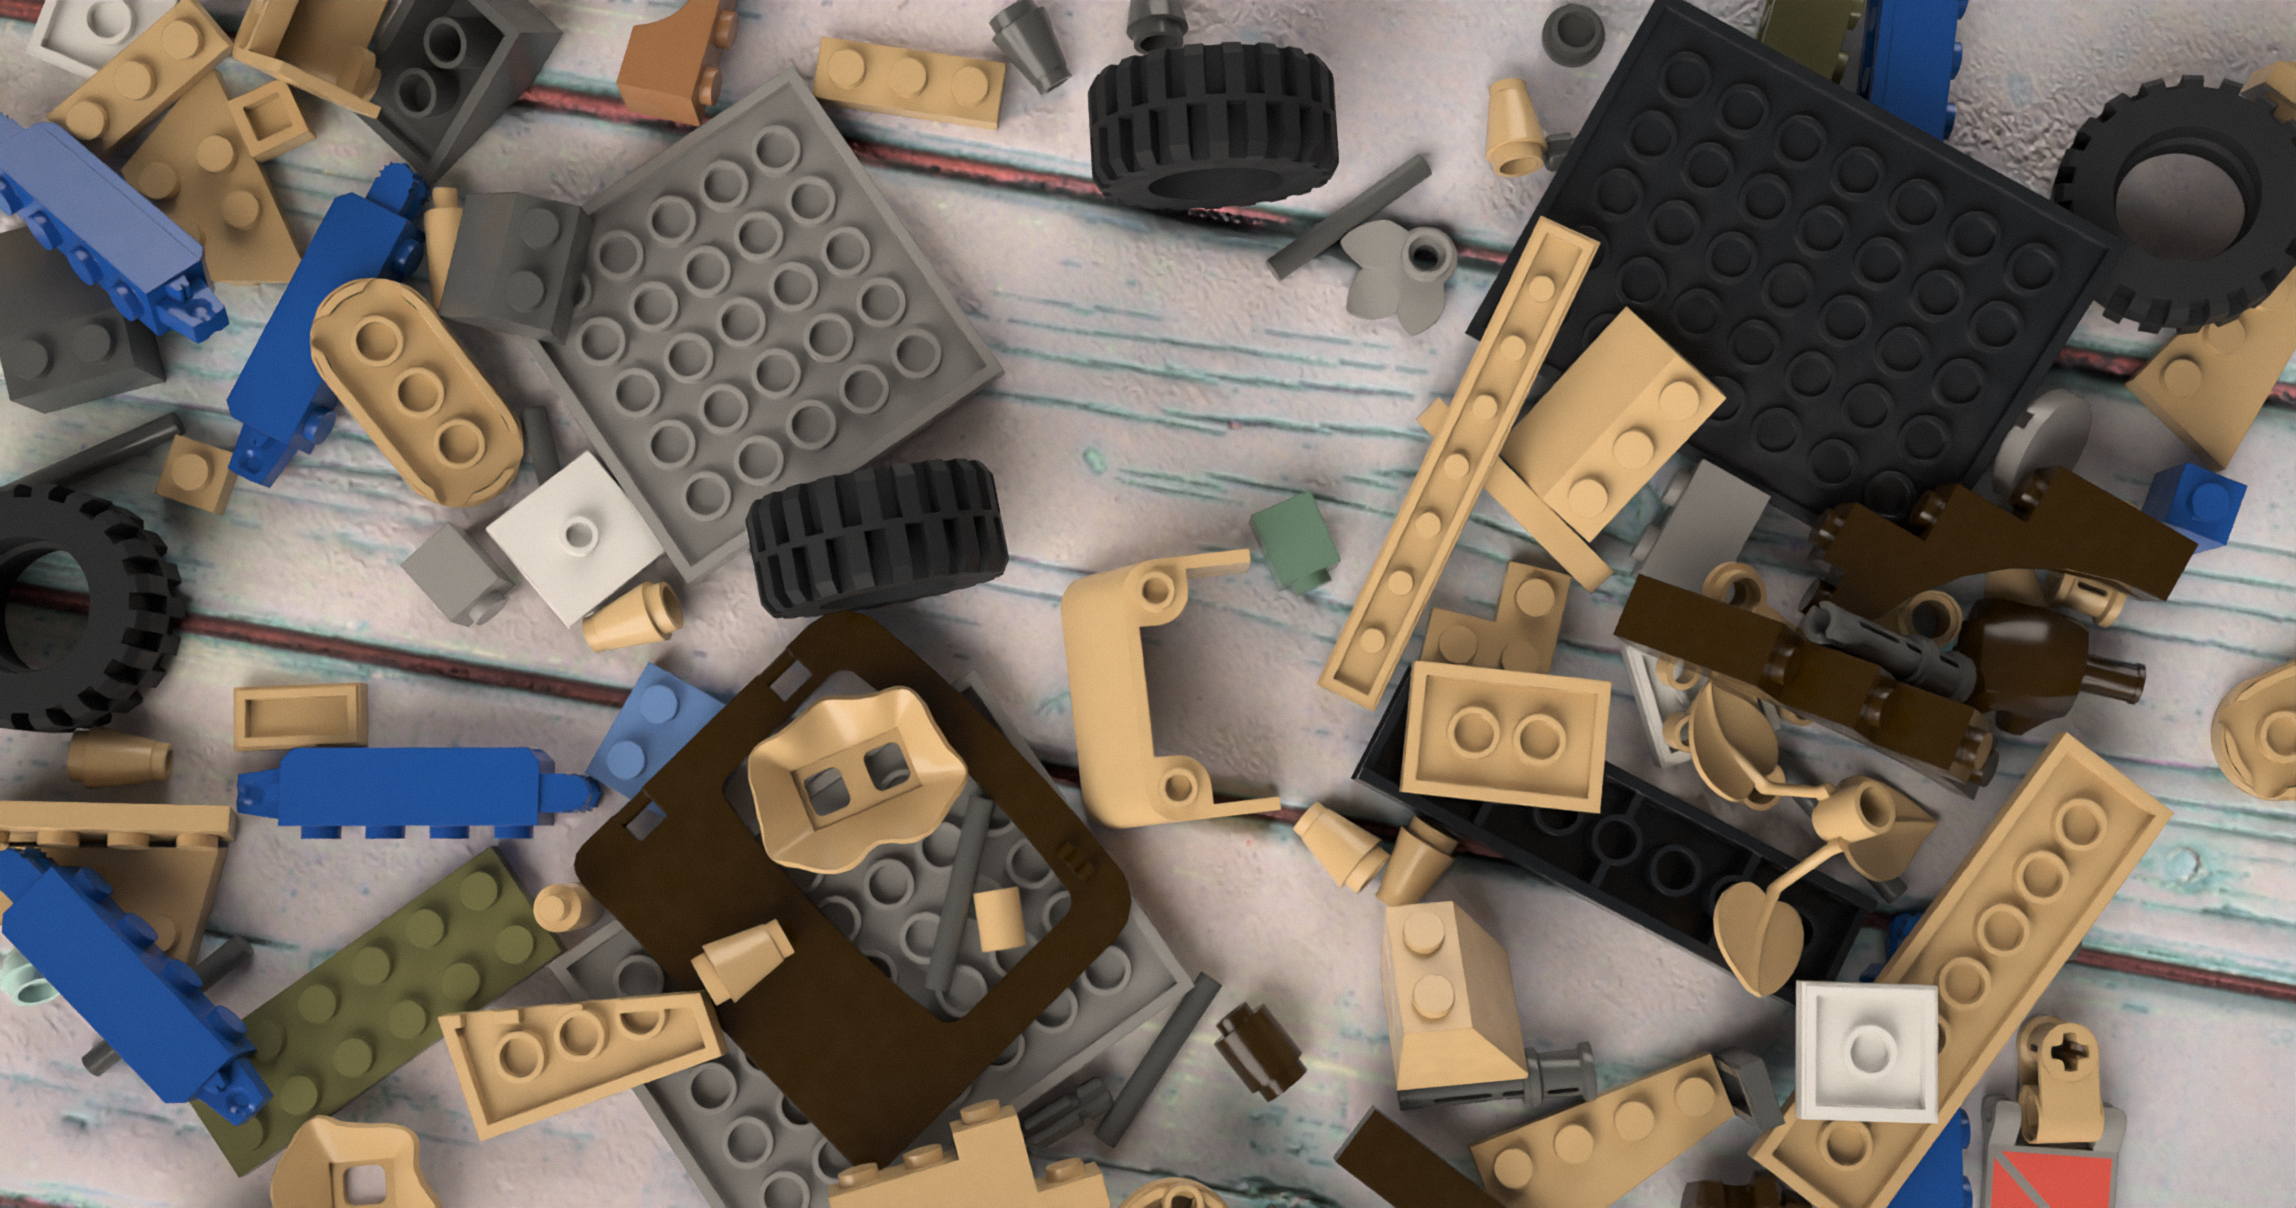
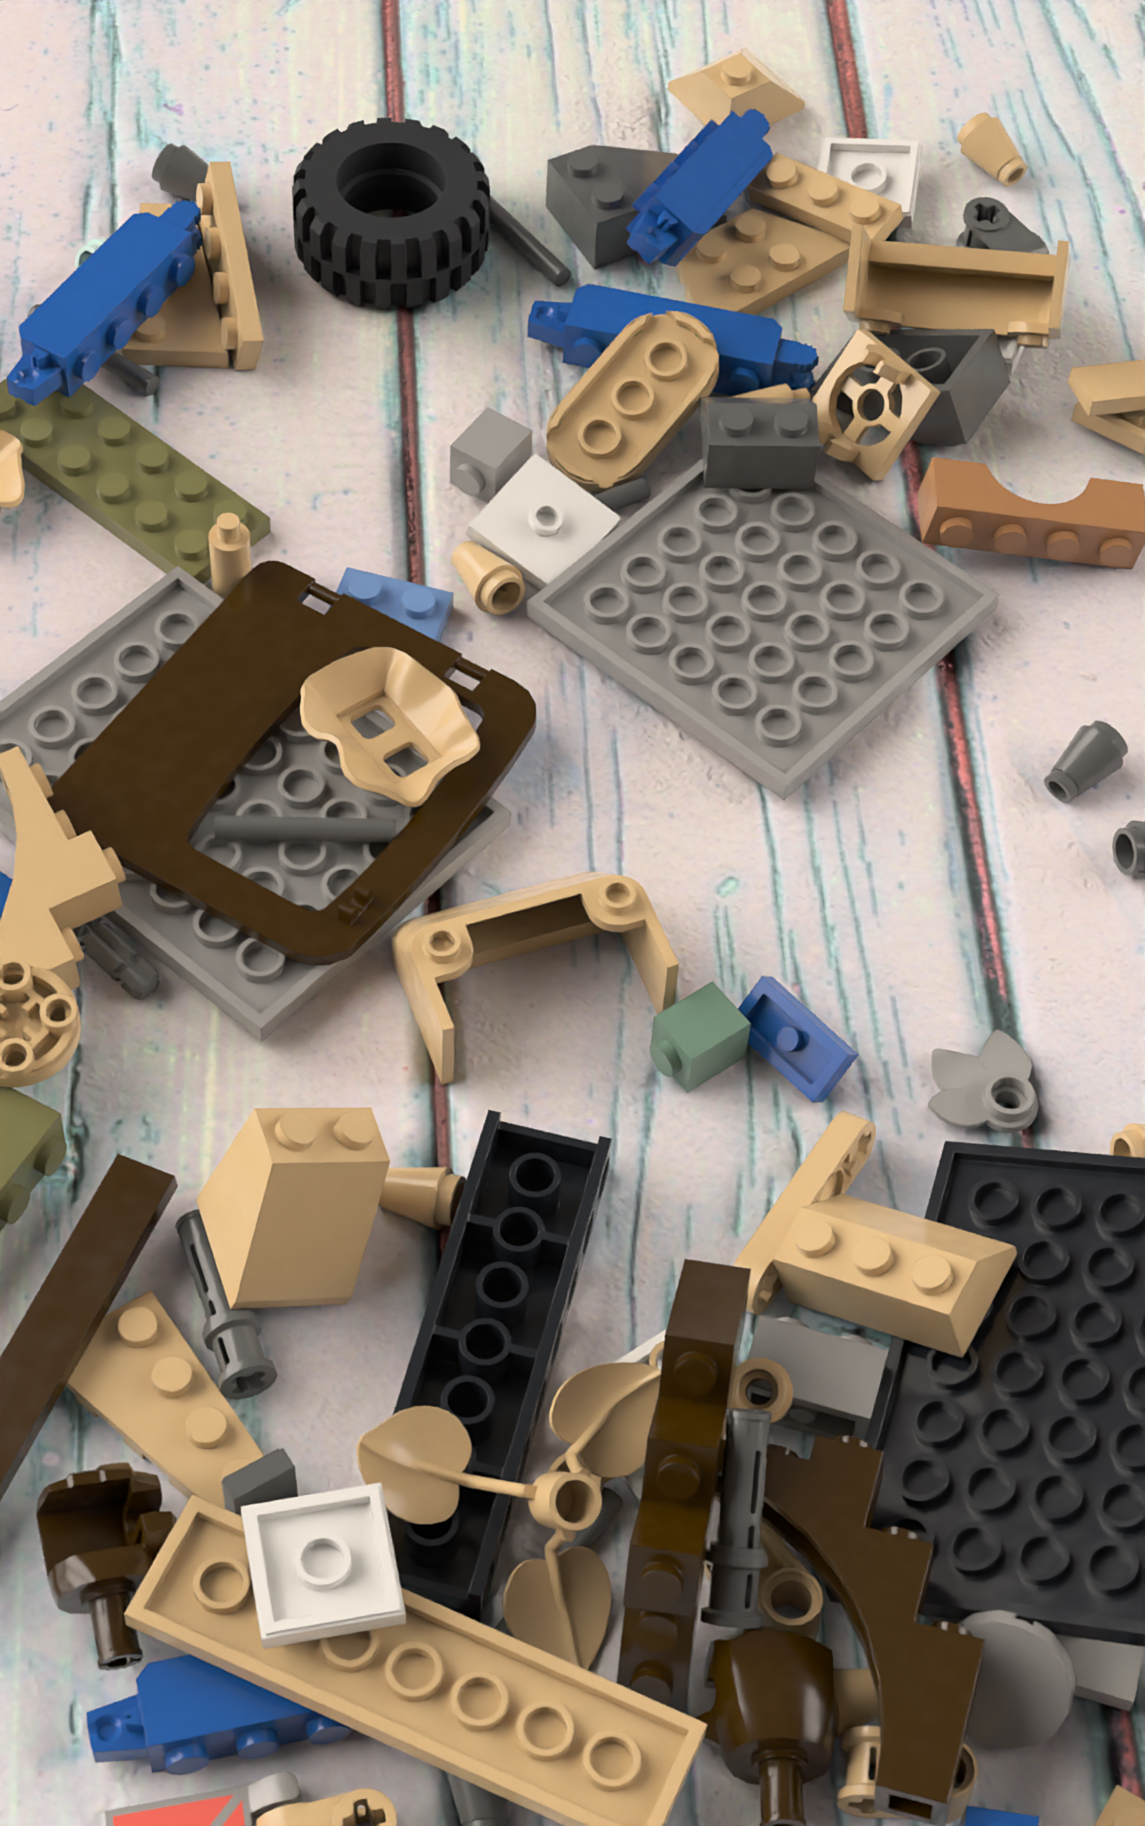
camera: 70 degrees right, 30 degrees down
(117, 758) = (284, 278): tan cone -> none
(197, 475) = (518, 292): tan plate -> none
(271, 120) = (820, 285): tan plate -> none
(300, 717) = (346, 389): tan tile -> none
(415, 788) = (306, 464): blue hinge -> none
(477, 89) = (916, 402): none -> tan piece
(560, 1056) = (107, 586): tan wing -> none
(741, 960) = (208, 669): tan cone -> none
(876, 537) = (603, 683): black tyre -> none
(910, 83) = (1018, 689): tan plate -> none
(1000, 919) = (289, 857): tan hinge -> none
(1157, 1060) = (185, 1025): dark grey bar -> none
(1213, 126) = (1054, 860): black tyre -> none
(1259, 1050) = (210, 1094): dark brown brick -> none
(1315, 448) = (795, 1040): none -> blue plate
(1341, 847) = (420, 1129): tan cone -> none
(1348, 217) = (1032, 1043): dark grey bar -> none
(1458, 462) = (820, 1137): tan tile -> none
(1505, 736) = (560, 1210): tan plate -> none
(1521, 631) = (644, 1240): tan plate -> none

